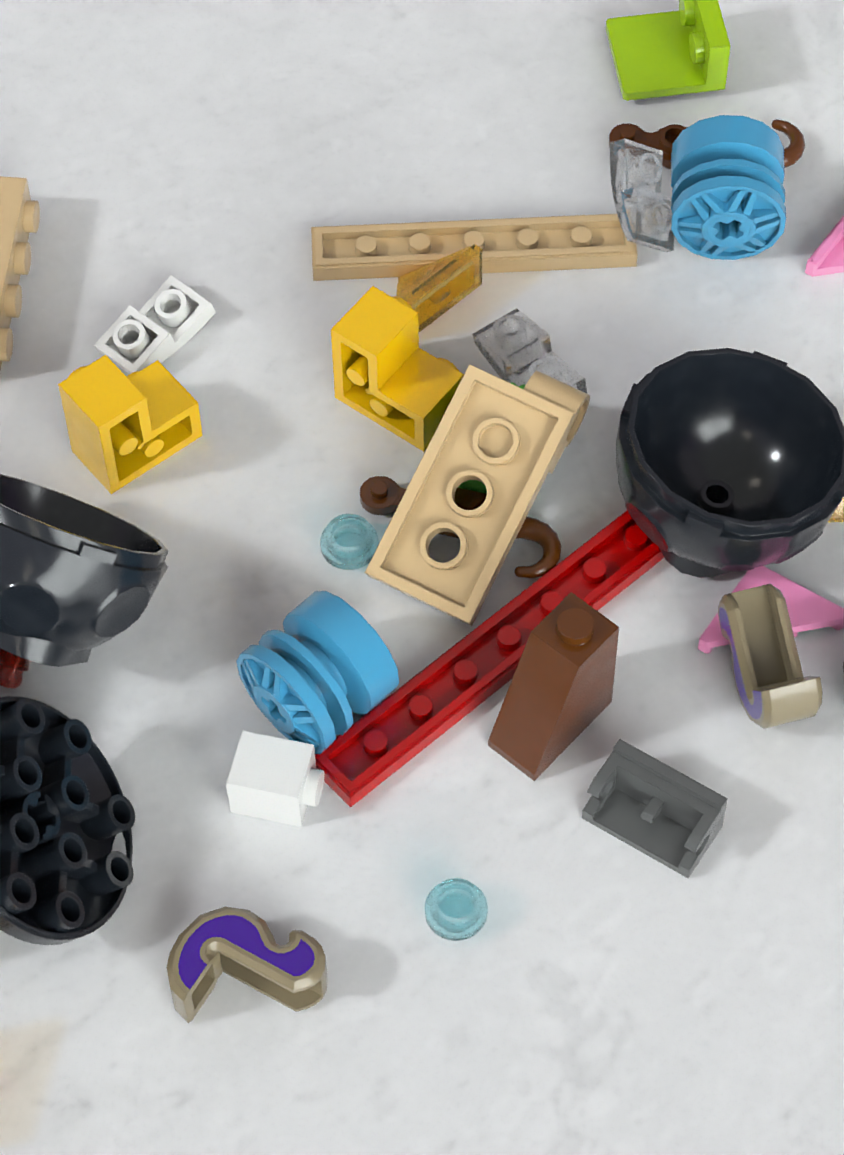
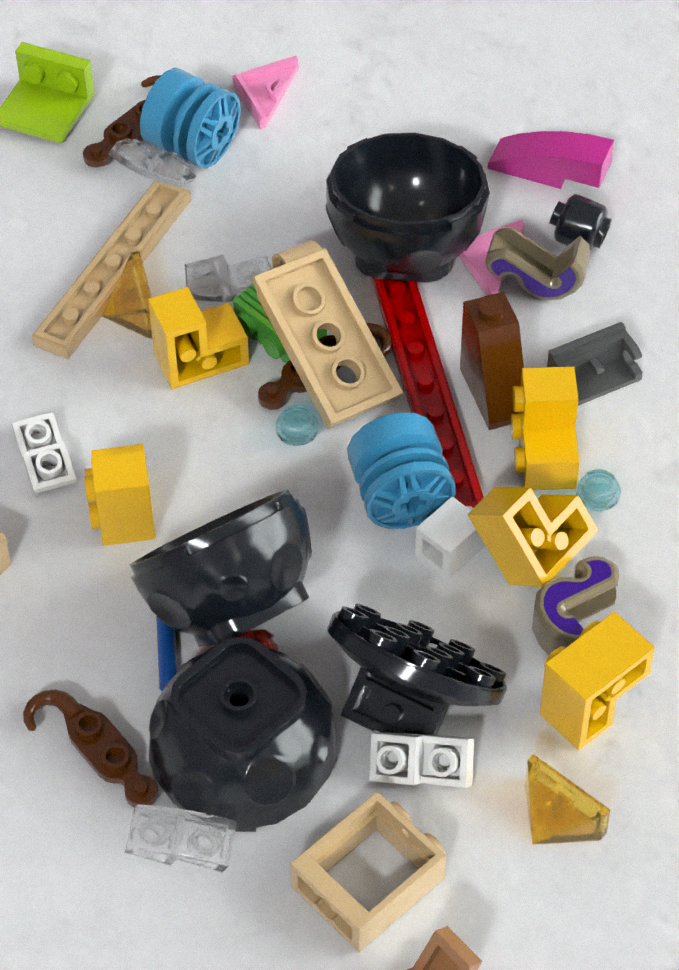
camera: 60 degrees left, 5 degrees down
(116, 1023) = (590, 676): none -> yellow brick
(302, 869) = (531, 535): none -> yellow brick
(498, 805) = (546, 428): none -> yellow brick

